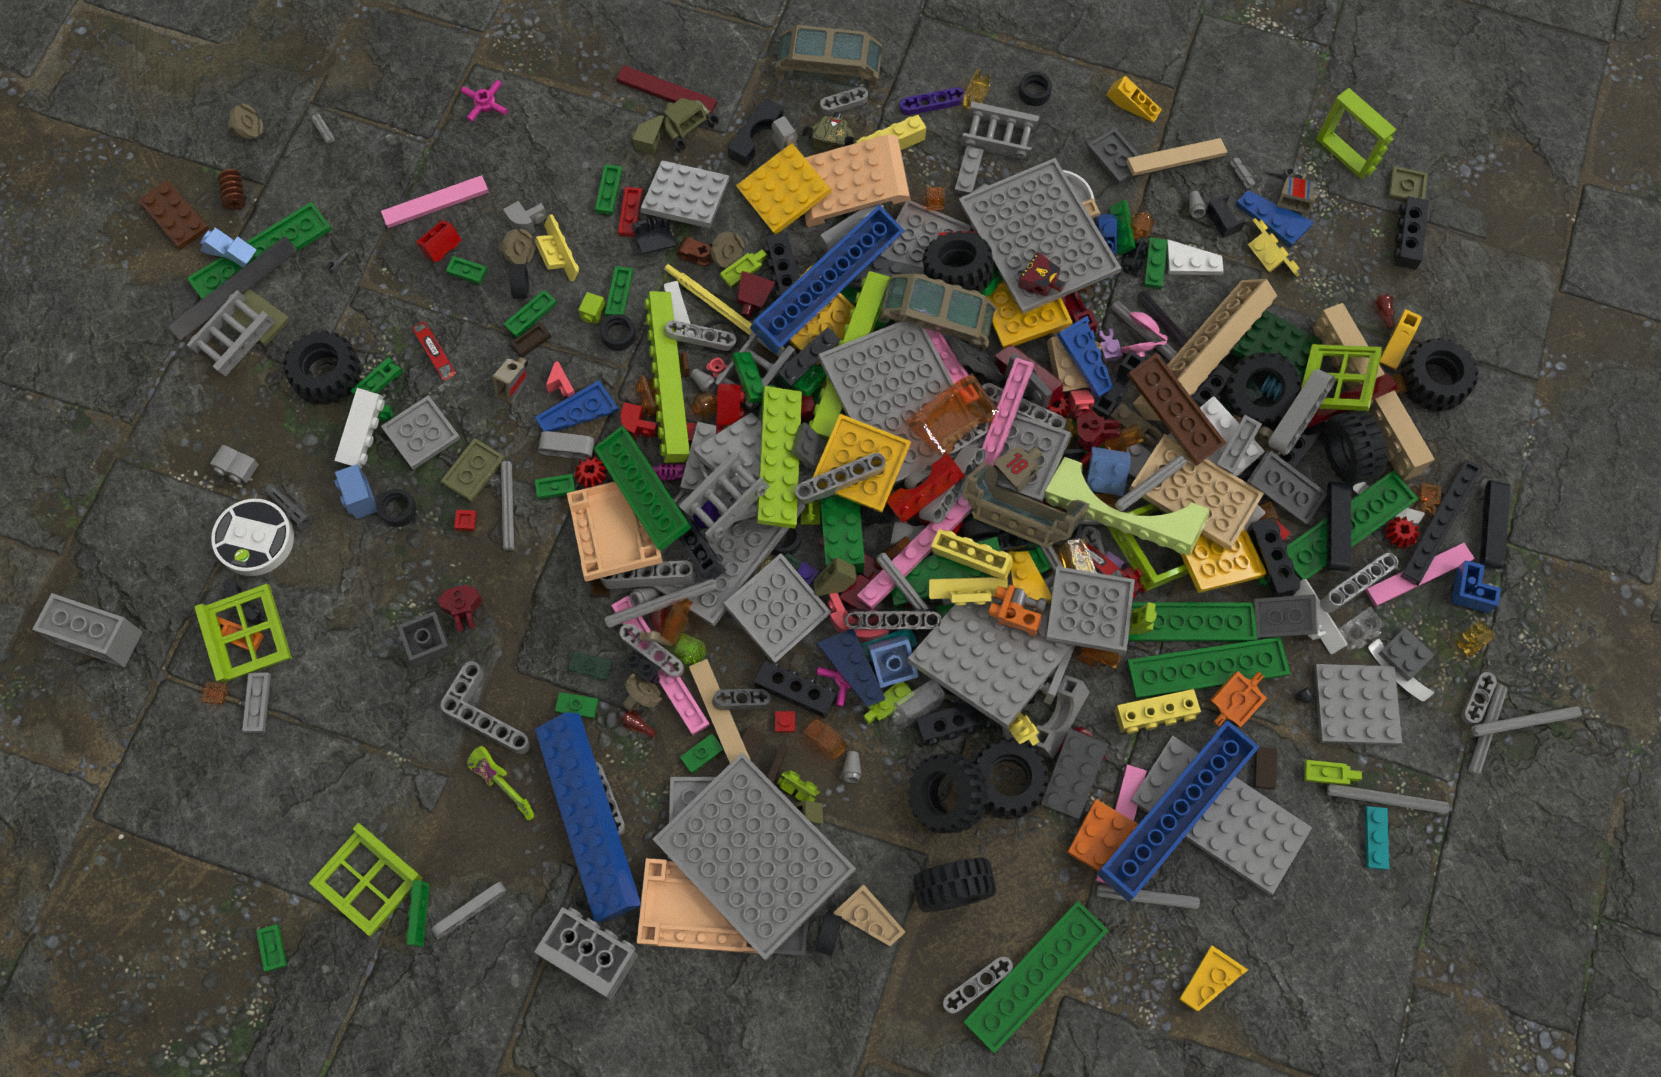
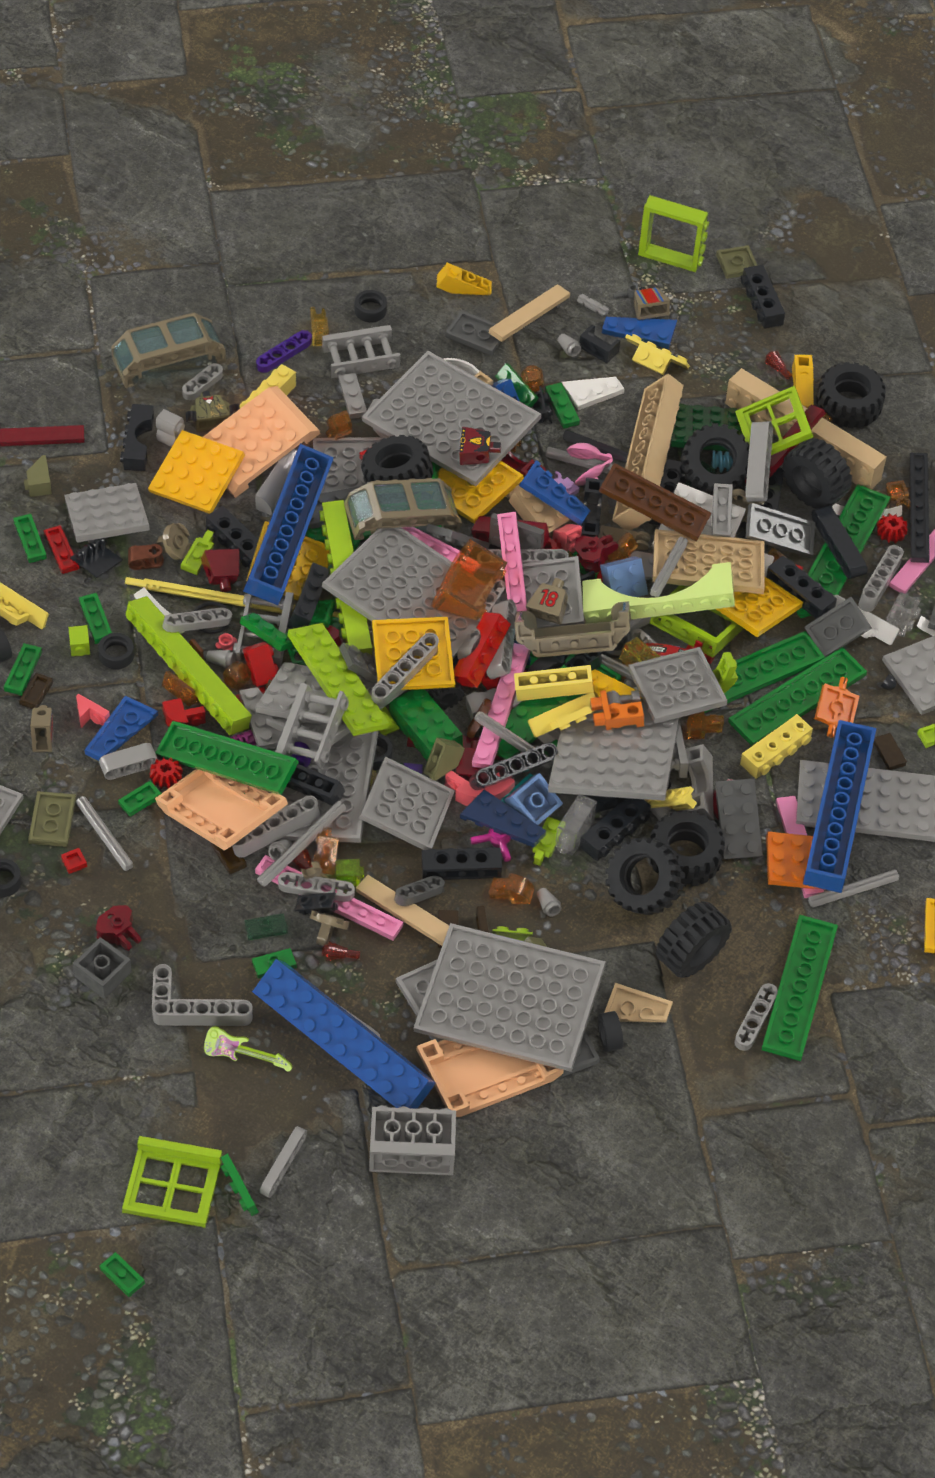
camera: 30 degrees left, 15 degrees down
(684, 117) = (64, 450): olive torso -> none
(702, 753) = (410, 950): green plate -> none
(784, 721) = (467, 894): red plate -> none

